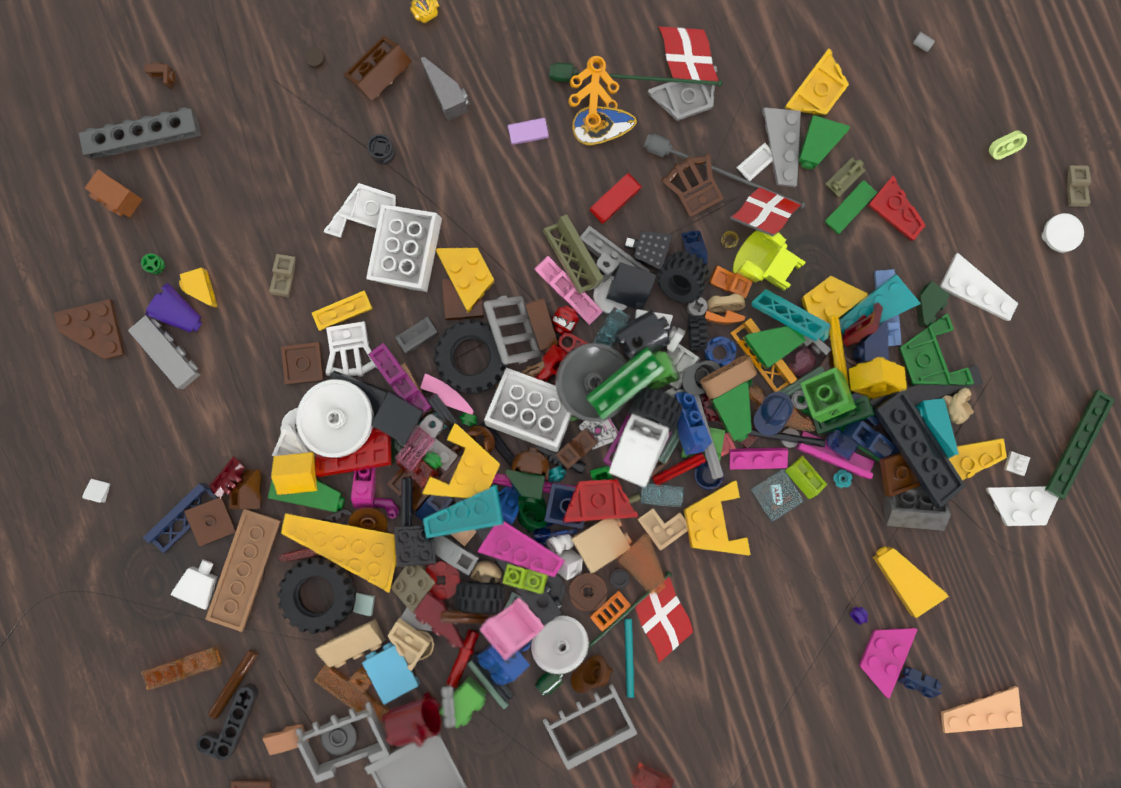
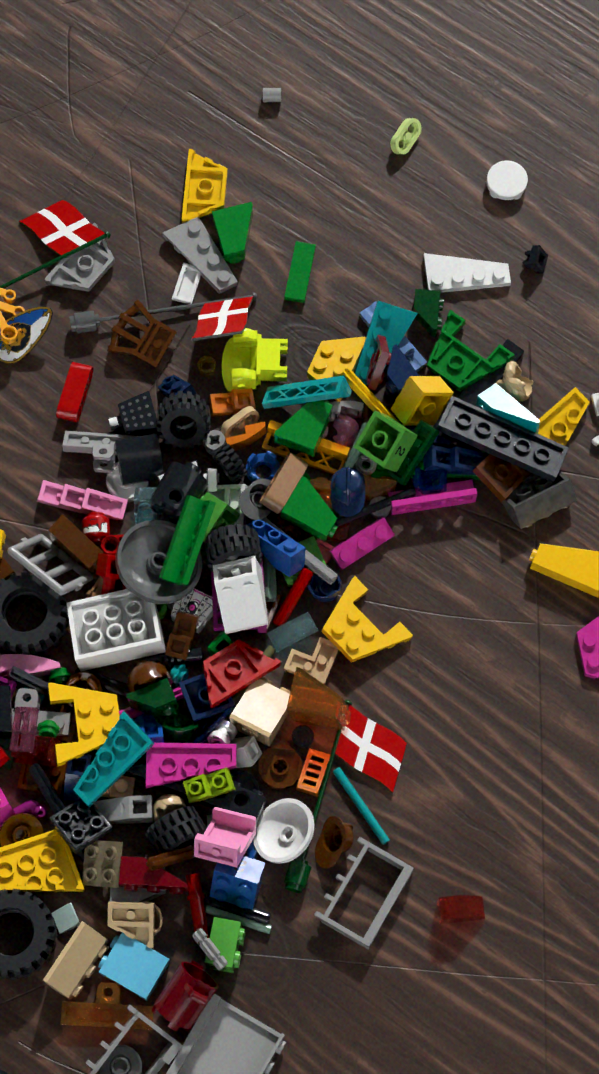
camera: 30 degrees left, 15 degrees down
(452, 578) = (134, 834): red plate -> none
(578, 251) = (70, 460): olive fence -> none
(777, 495) = (402, 566): clear light blue tile -> none
(806, 477) = (418, 534): lime slope -> none
(839, 482) = (453, 518): teal plate -> none
(846, 176) = (278, 248): olive hinge -> none
(859, 615) = (552, 627): dark purple plate -> none
(896, 209) = (339, 248): red wing -> none
(1043, 315) = (537, 259): none -> black tile
(1077, 186) = (492, 134): dark tan slope -> none

